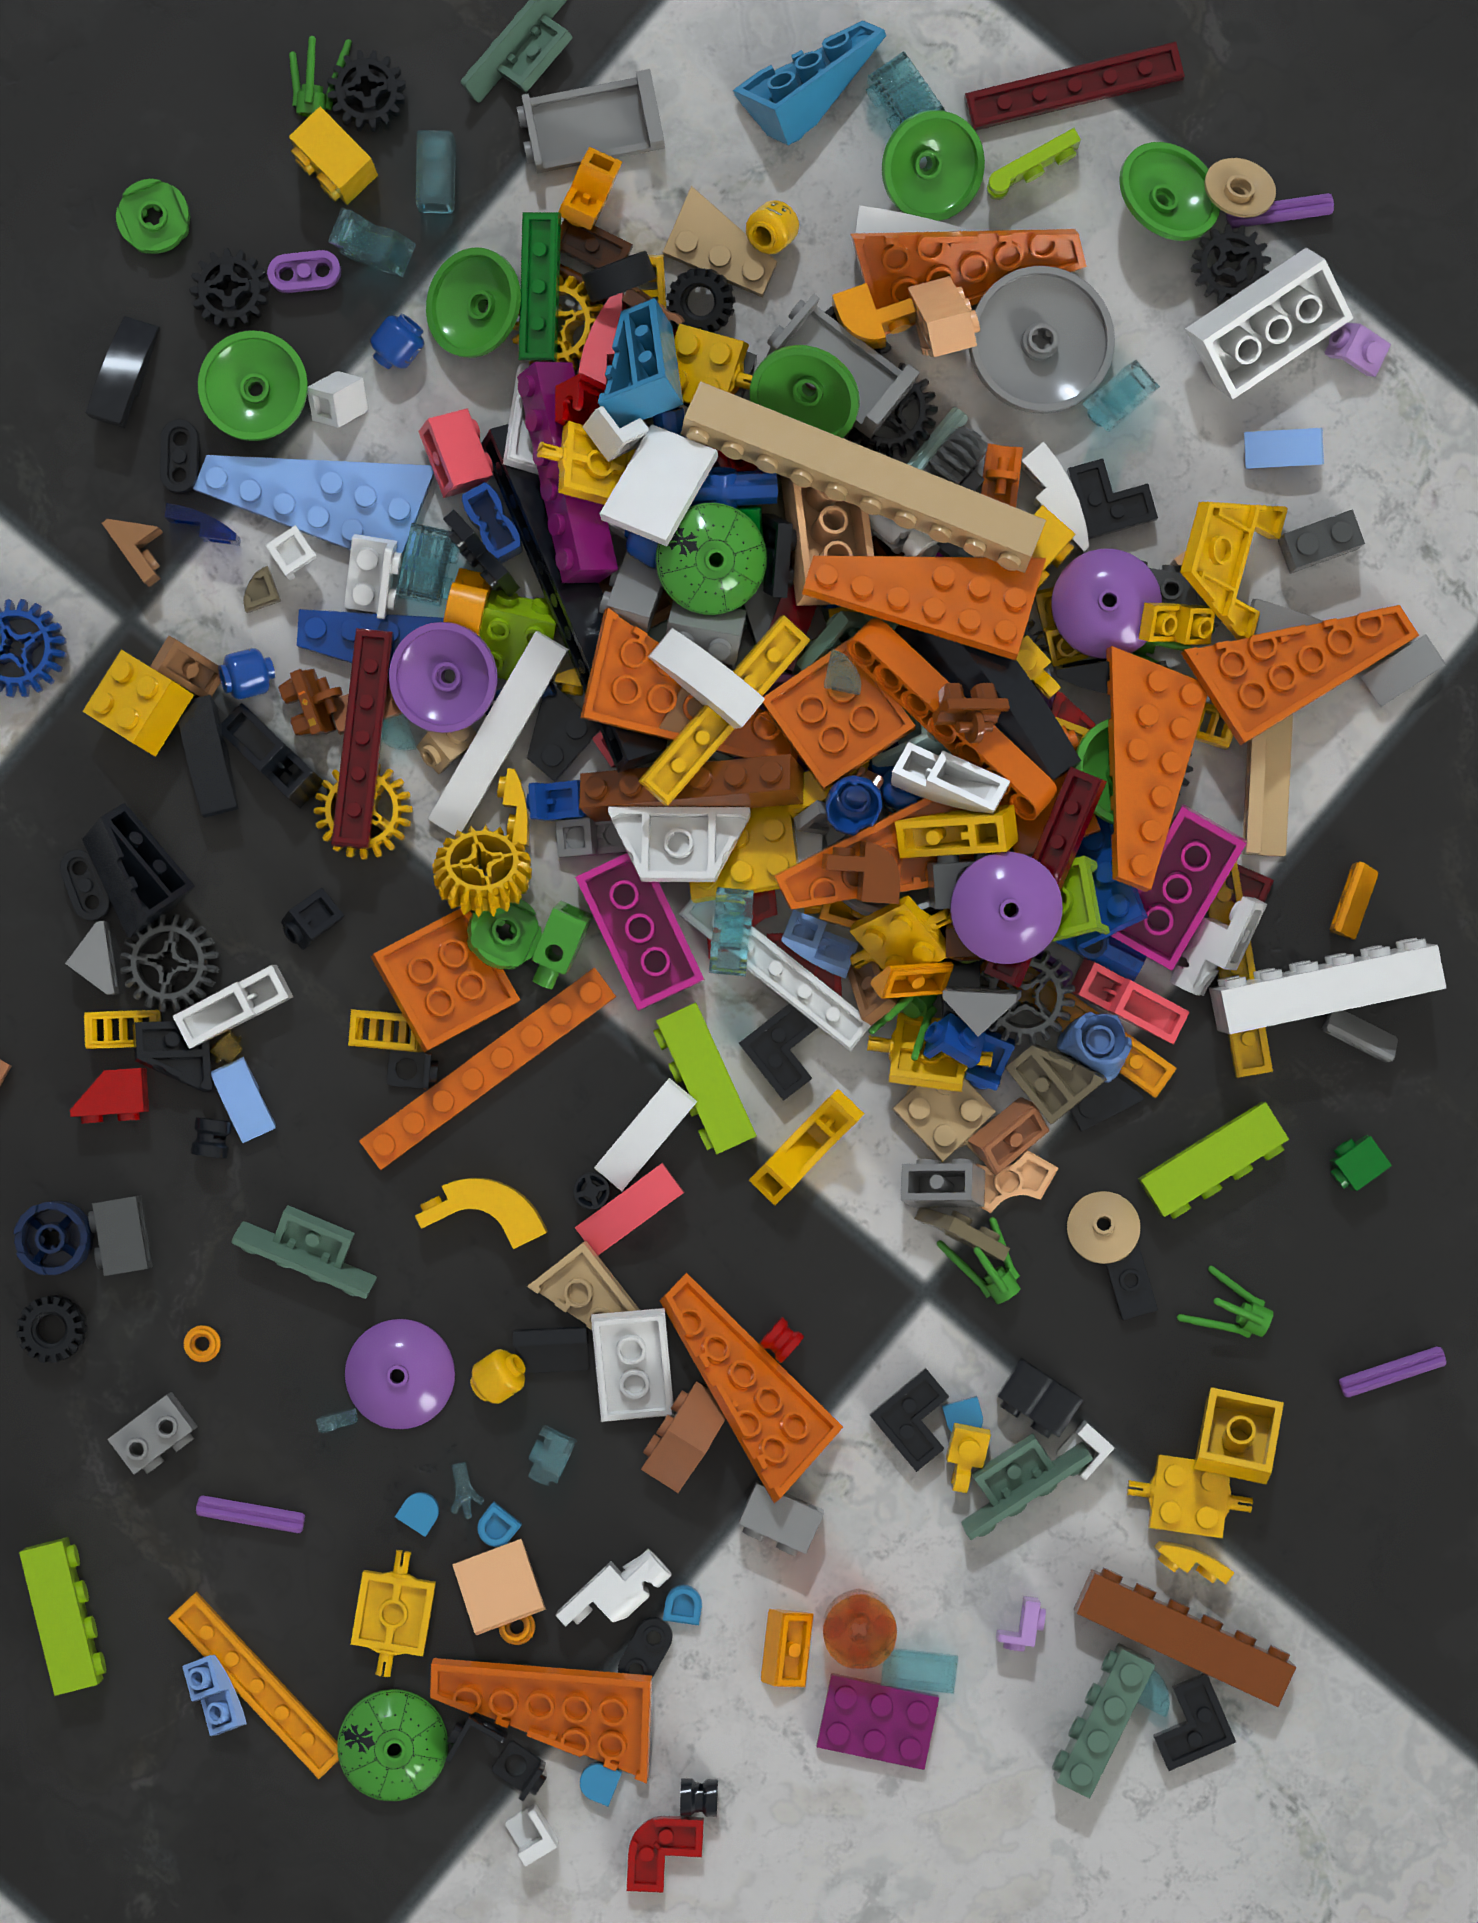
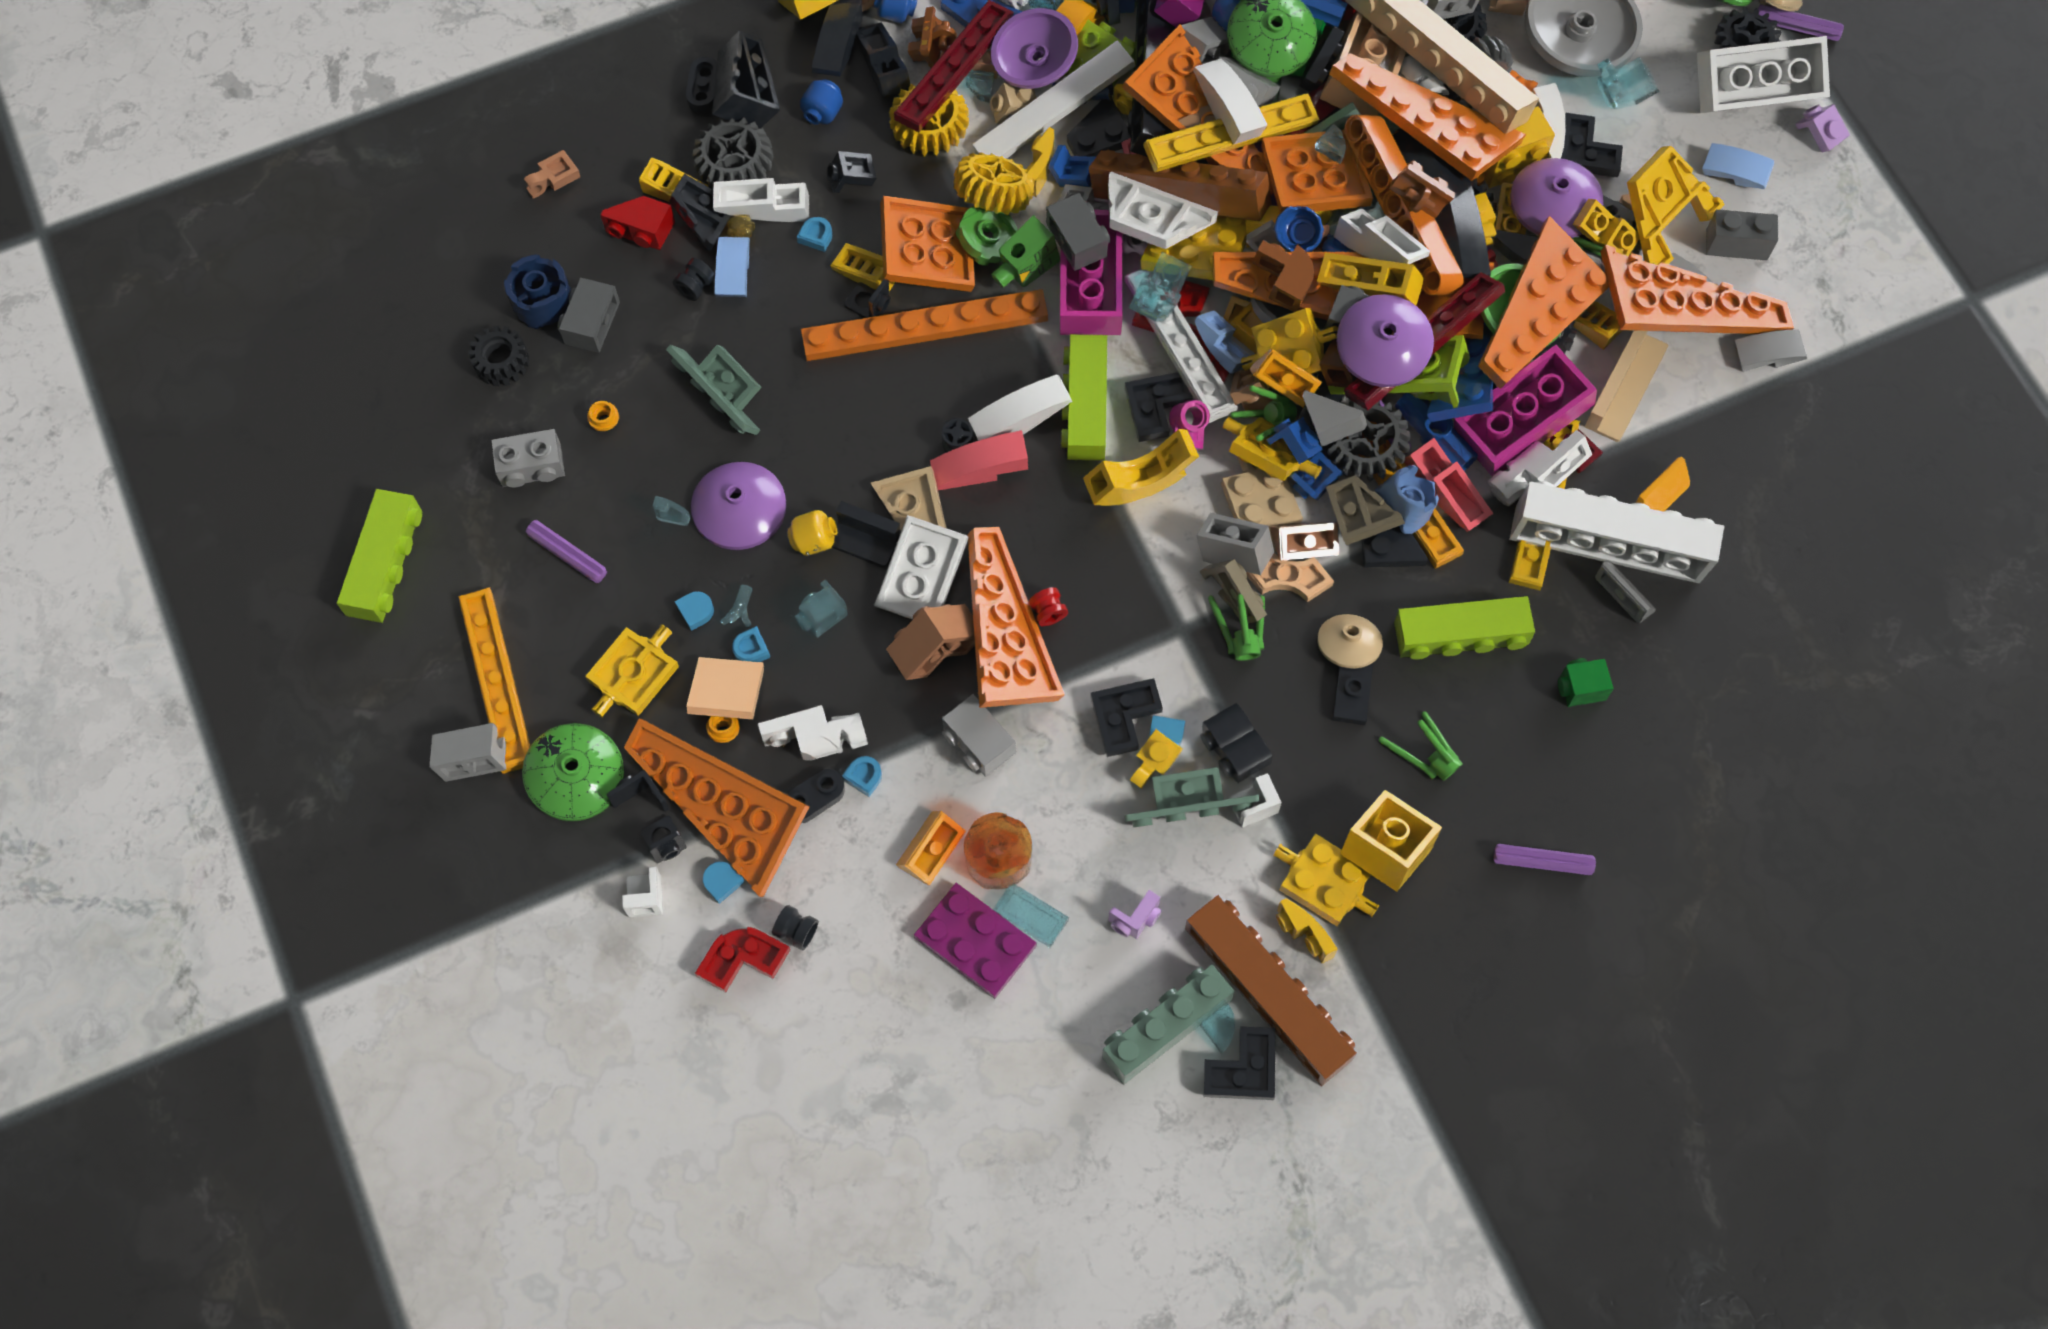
camera: 25 degrees right, 20 degrees down
(96, 959) = (682, 128): light grey slope -> none
(219, 1700) = (460, 661): light blue slope -> none
(231, 846) = (821, 102): none -> blue head
(278, 1780) = (468, 752): none -> light grey hinge
(311, 1011) = (815, 233): none -> dark azure tile
(504, 1203) = (874, 405): yellow arch -> none
(610, 905) = (1077, 231): none -> dark grey brick
(835, 1073) = (1200, 420): none -> dark pink piece

